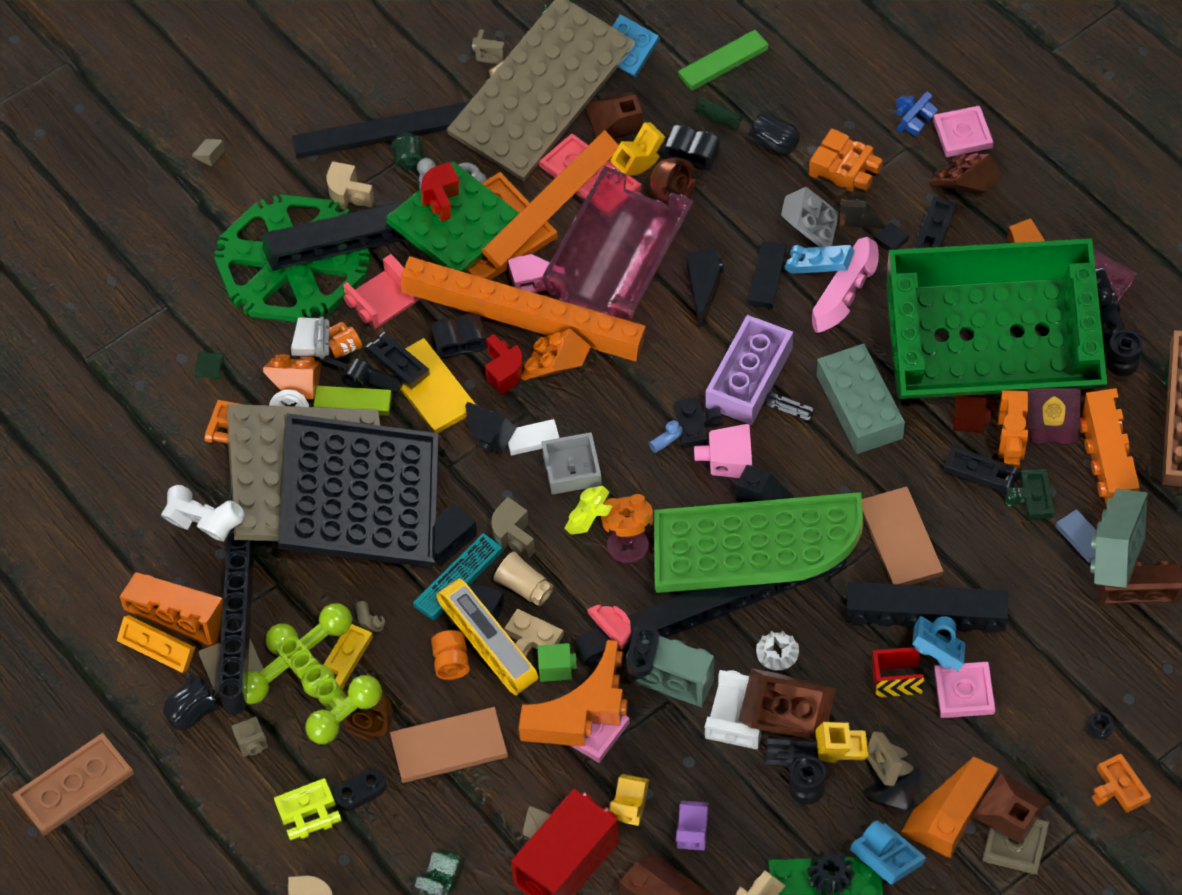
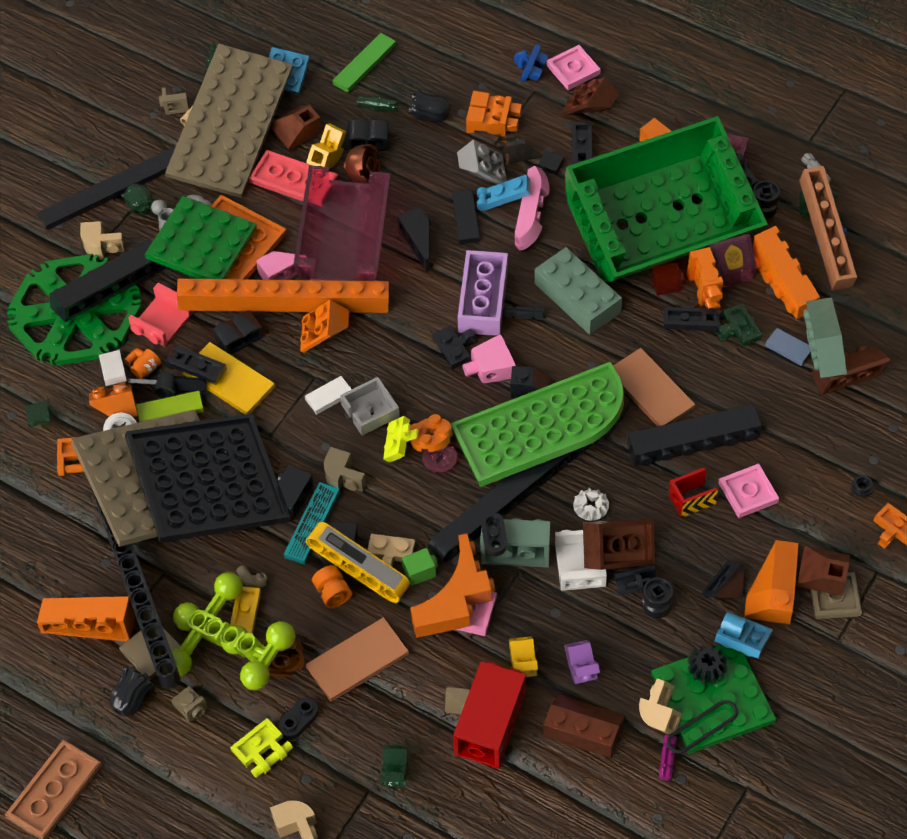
camera: 20 degrees left, 0 degrees up
(155, 643) = (81, 652): light orange plate -> none
(214, 521) = (100, 537): white plate -> none
(322, 331) = (127, 364): light grey axle -> none
(437, 186) = (180, 219): red brick -> none
(489, 428) = (292, 397): black slope -> none
(506, 367) = (286, 344): red brick -> none
(523, 579) = (367, 509): tan plant -> none
(550, 199) = (271, 205): orange tile -> none
(612, 622) = (456, 520): coral plate -> none
(673, 432) = (441, 358): medium blue arm -> none
(839, 743) = (671, 560): yellow brick -> none
(887, 759) = (712, 562): dark tan tile -> none
(946, 649) = (722, 461): dark azure plate -> none

